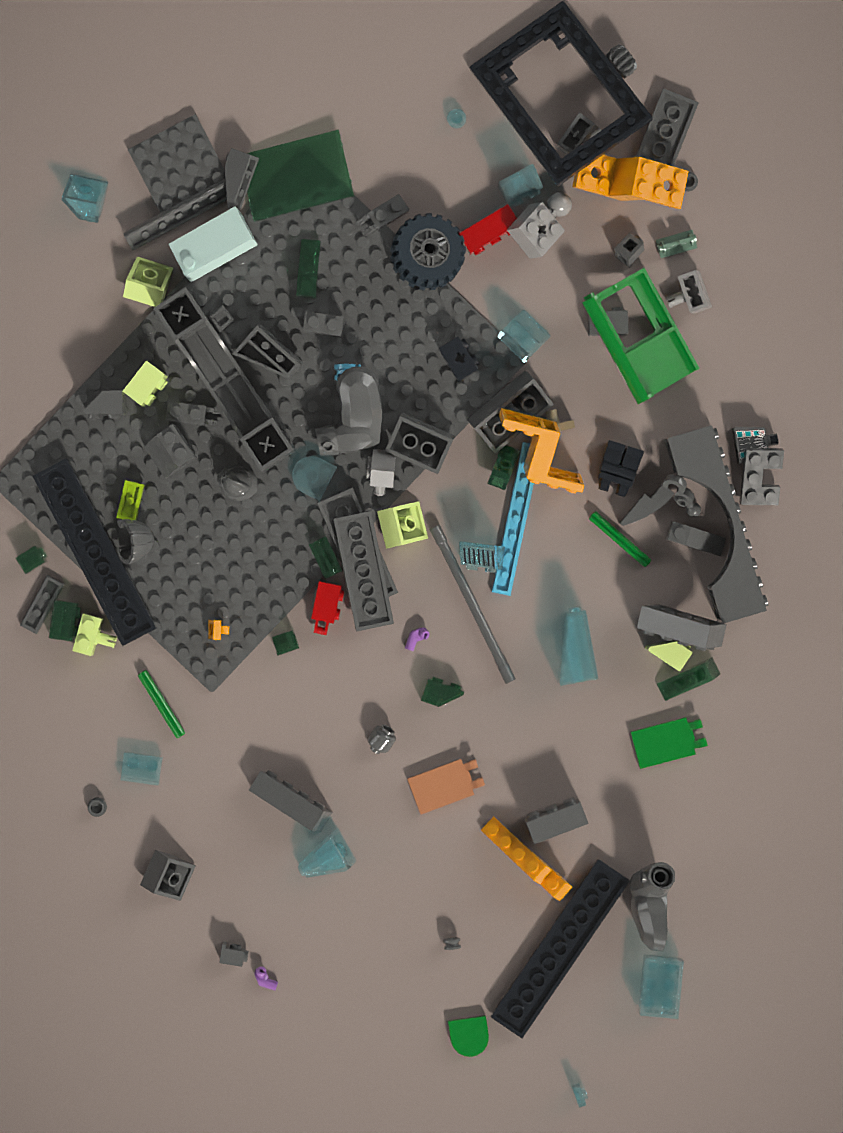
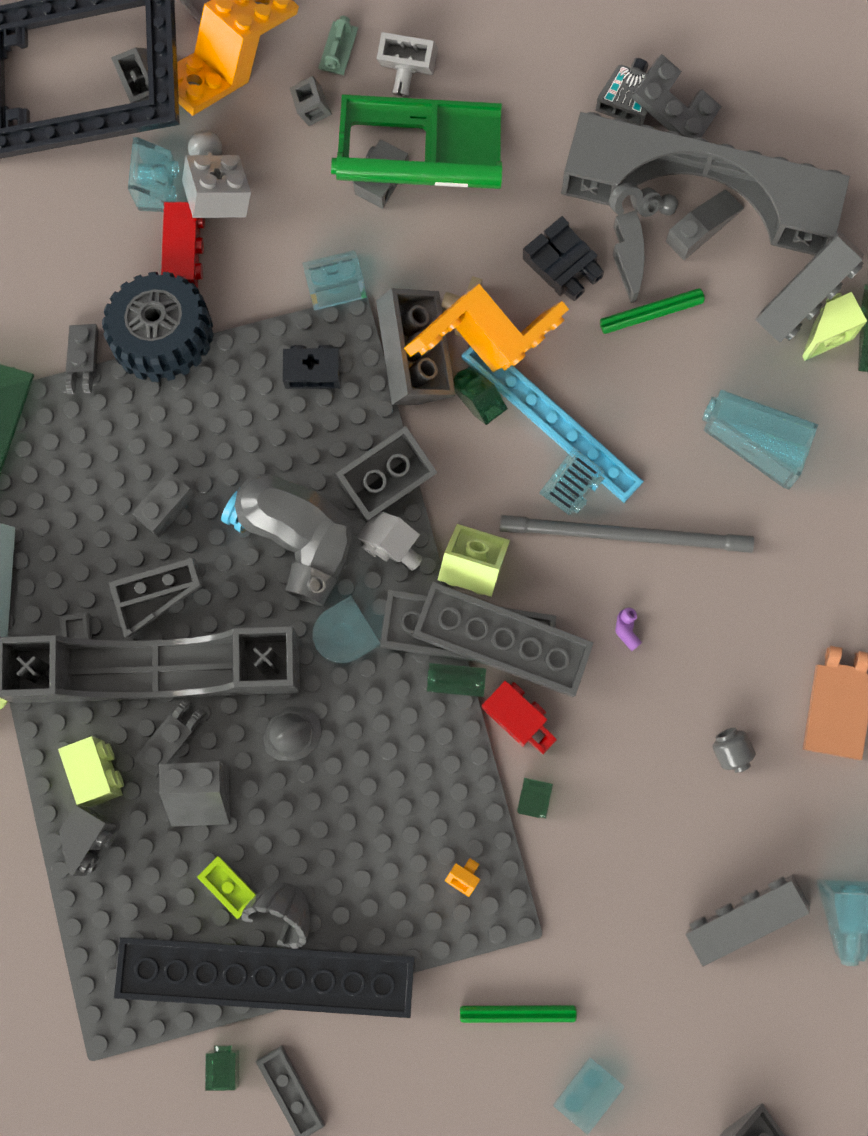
camera: 60 degrees left, 10 degrees down
(64, 620) = (329, 1076): clear green brick -> none
(90, 635) = (369, 1052): yellowish green brick -> none
(308, 268) = (87, 484): clear green slope -> none
(438, 693) = (716, 641): clear green slope -> none
(456, 118) = (27, 208): clear light blue plate -> none

